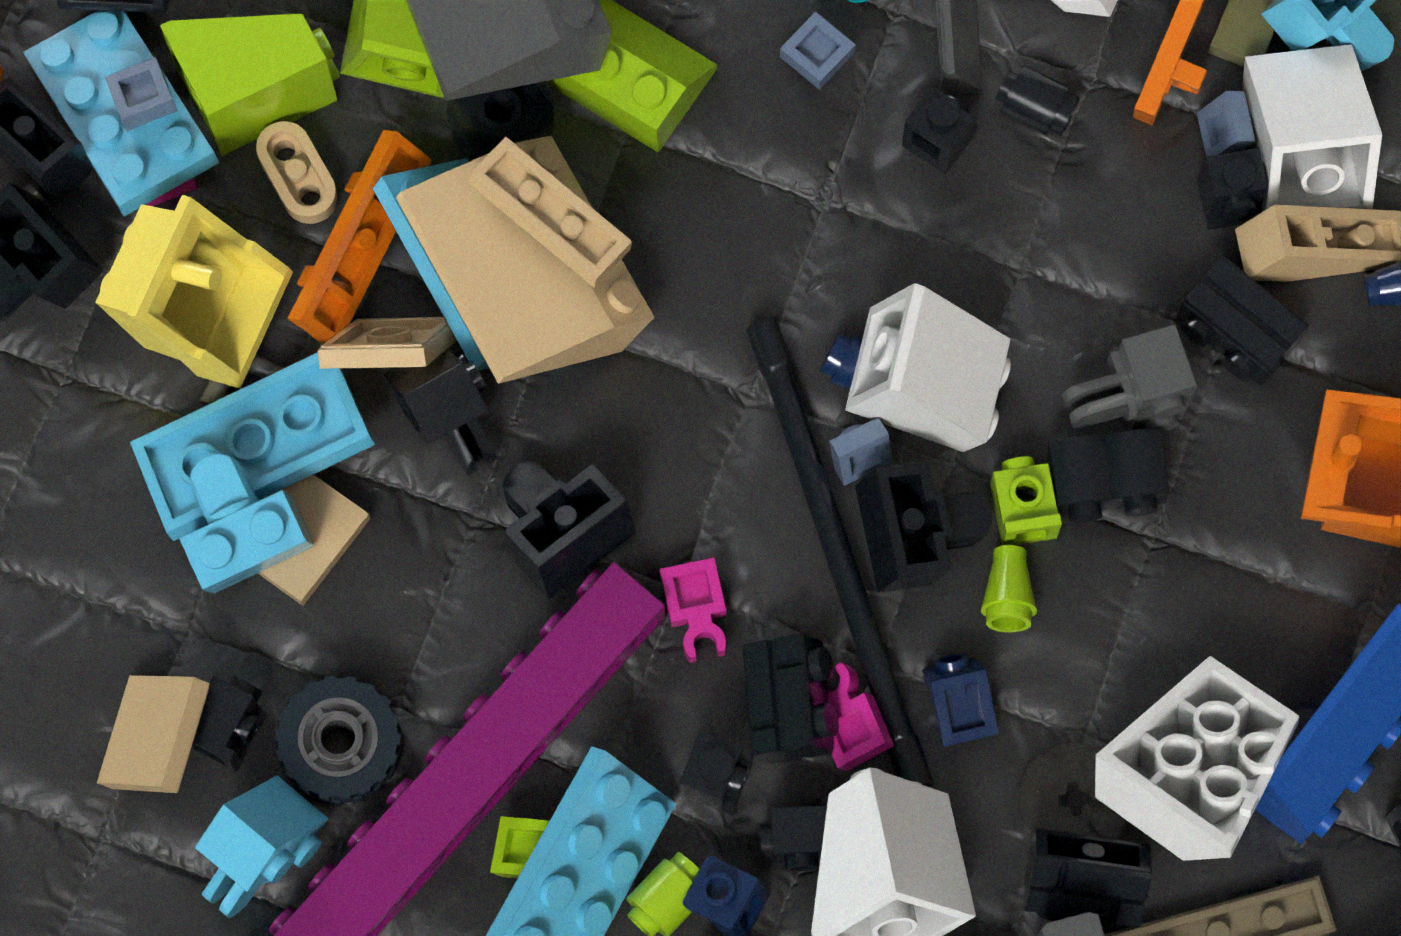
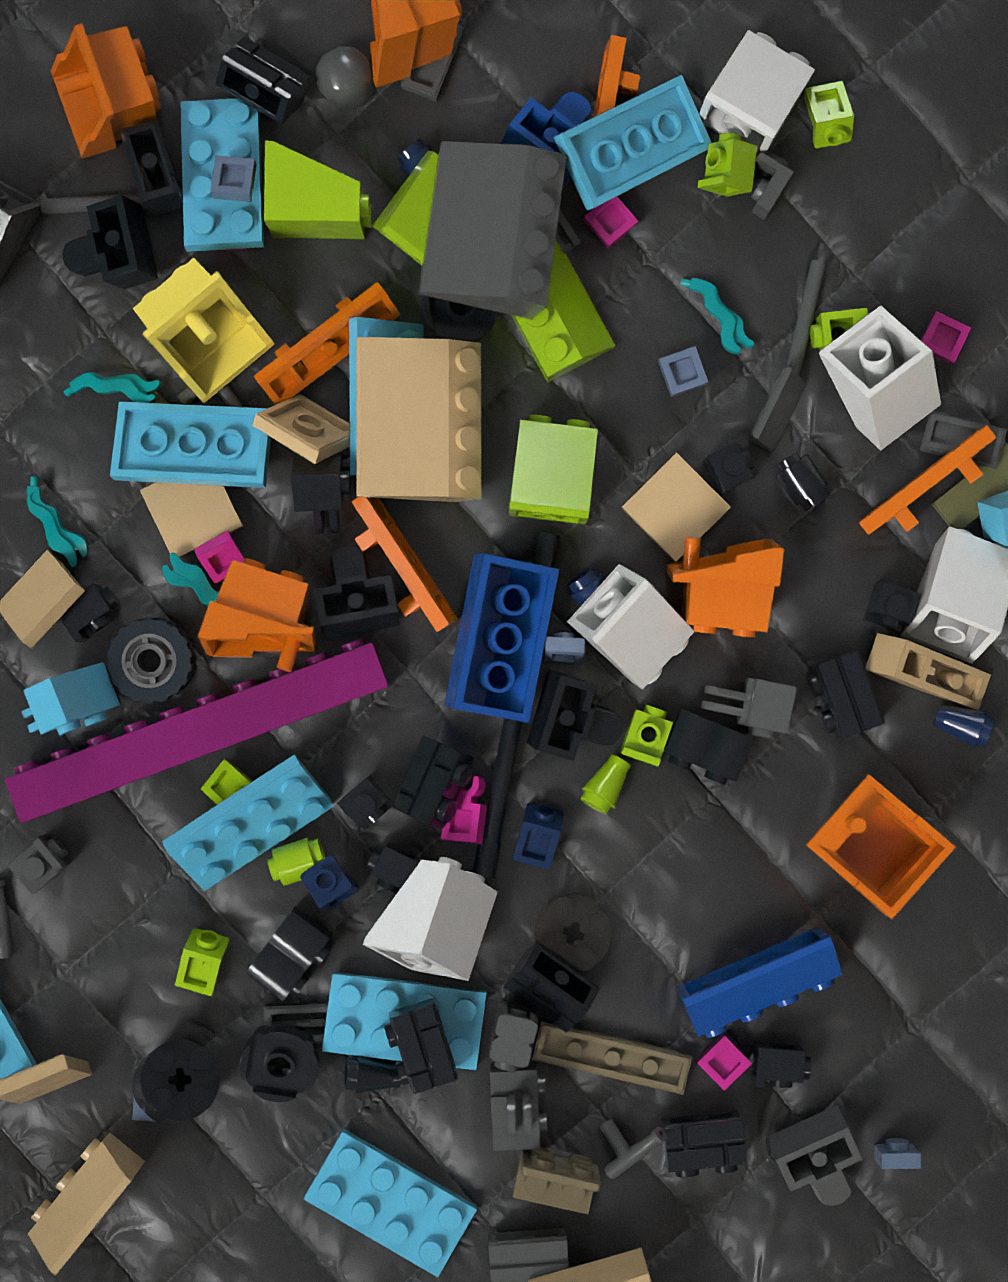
camera: 20 degrees right, 15 degrees up
(130, 418) = (130, 384): none -> teal hair
(137, 653) = (57, 536): none -> teal hair
(241, 530) = (154, 501): medium azure brick -> none
(298, 175) = (311, 278): tan plate -> none
(342, 608) = (189, 576): none -> teal hair
(361, 564) = (218, 554): none -> dark pink plate
(454, 601) = (259, 614): none -> orange piece
(549, 212) = (446, 402): tan plate -> none
(553, 426) = (388, 535): none -> orange hinge
(695, 599) = (412, 686): dark pink plate -> none
(727, 245) = (553, 470): none -> lime slope
(773, 473) = (501, 637): none -> blue slope
(900, 214) = (675, 506): none -> tan tile
(1025, 261) = (729, 587): none -> orange piece
(1196, 762) = (654, 963): white wedge -> none
(1226, 124) = (911, 562): sand blue plate -> none
(1362, 859) = (723, 1061): none -> dark pink plate

